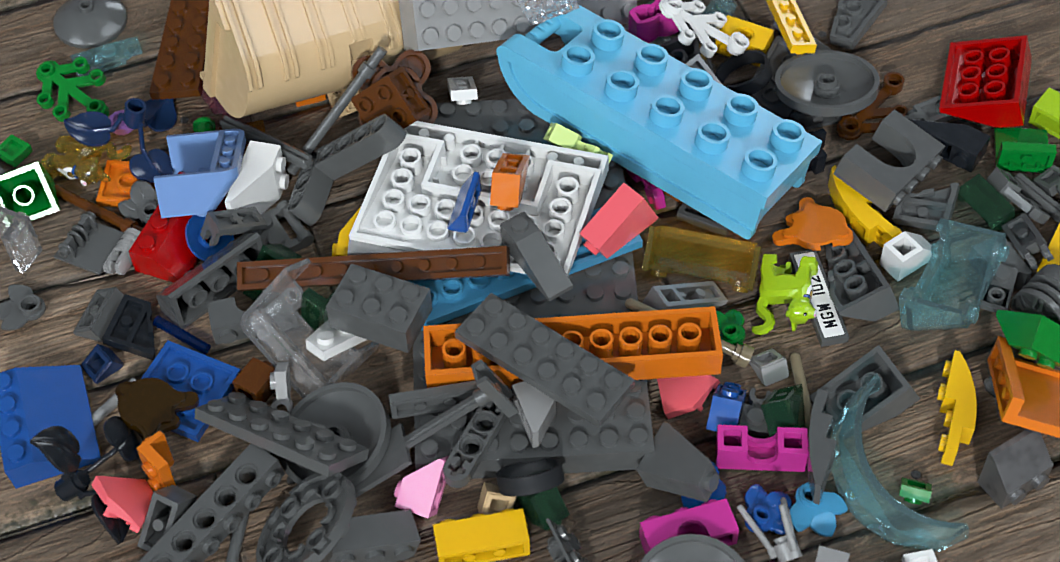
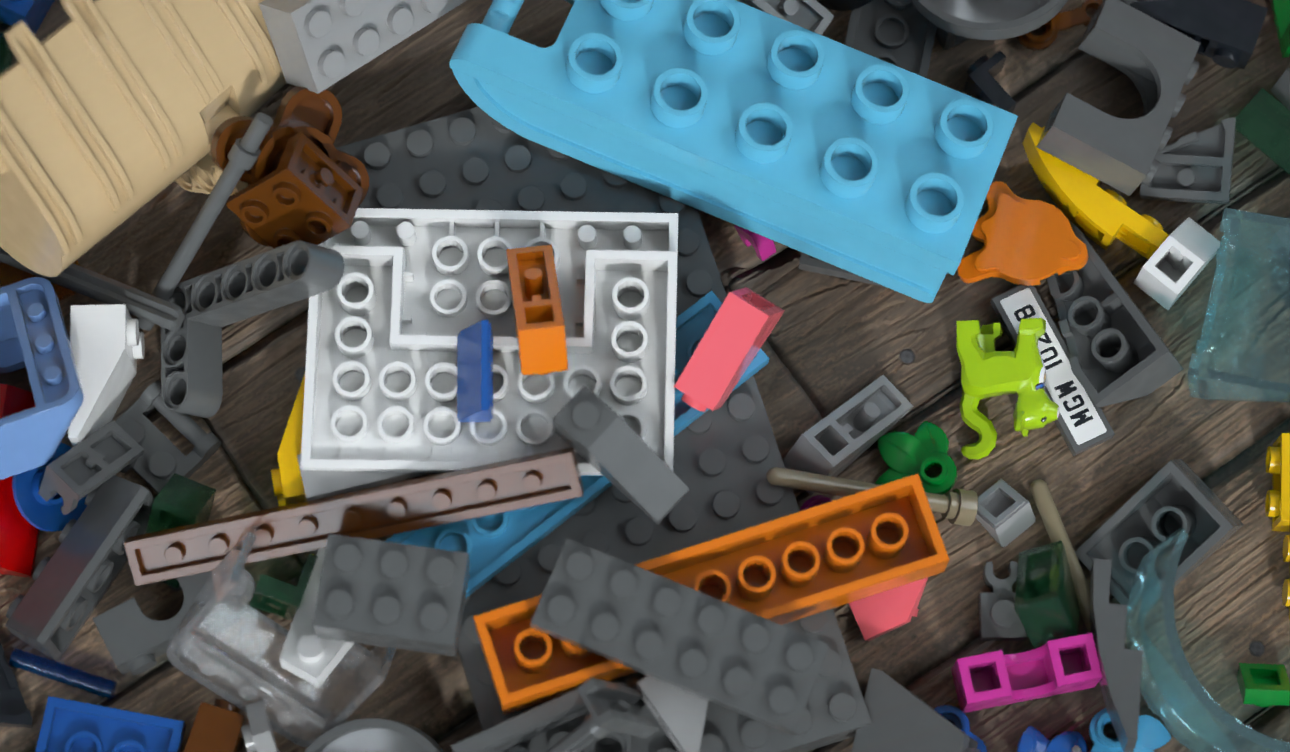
camera: 20 degrees left, 20 degrees up
(462, 90) = (388, 102): white plate -> none
(566, 138) = (603, 188): yellowish green piece -> none
(702, 256) = (865, 334): clear yellow windscreen -> none
(726, 405) = (958, 611): blue slope -> none

